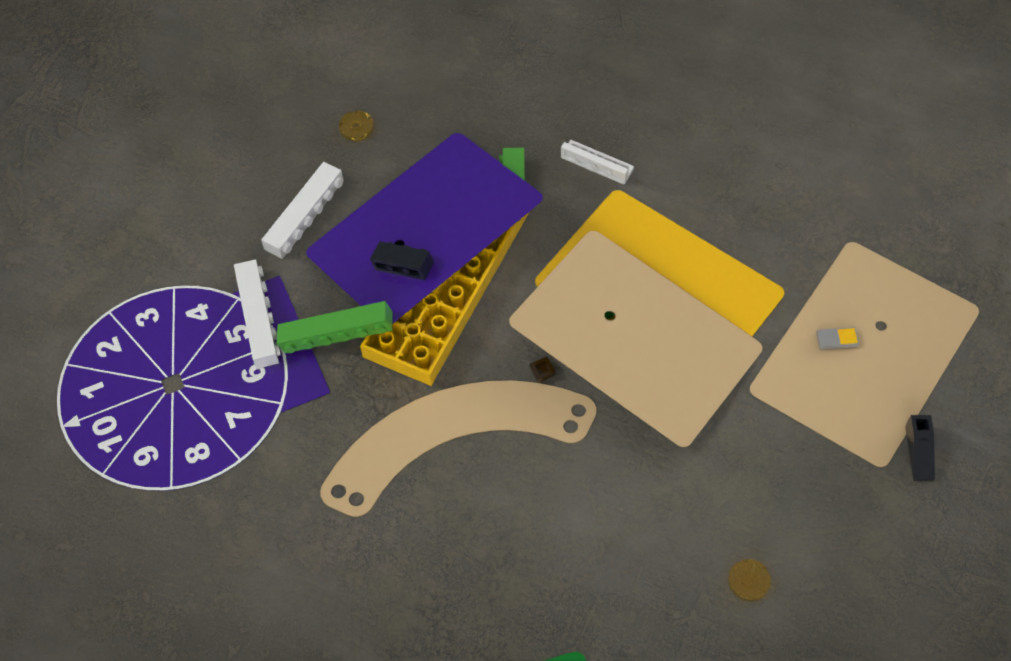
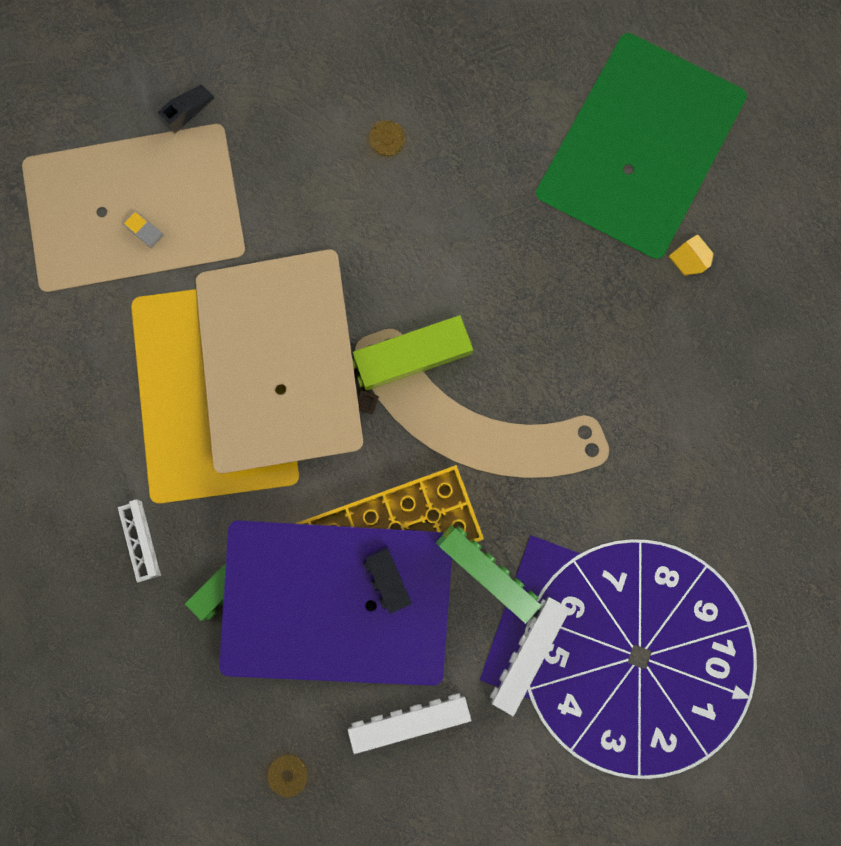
camera: 140 degrees left, 20 degrees up
(545, 431) = (412, 353): none -> lime brick

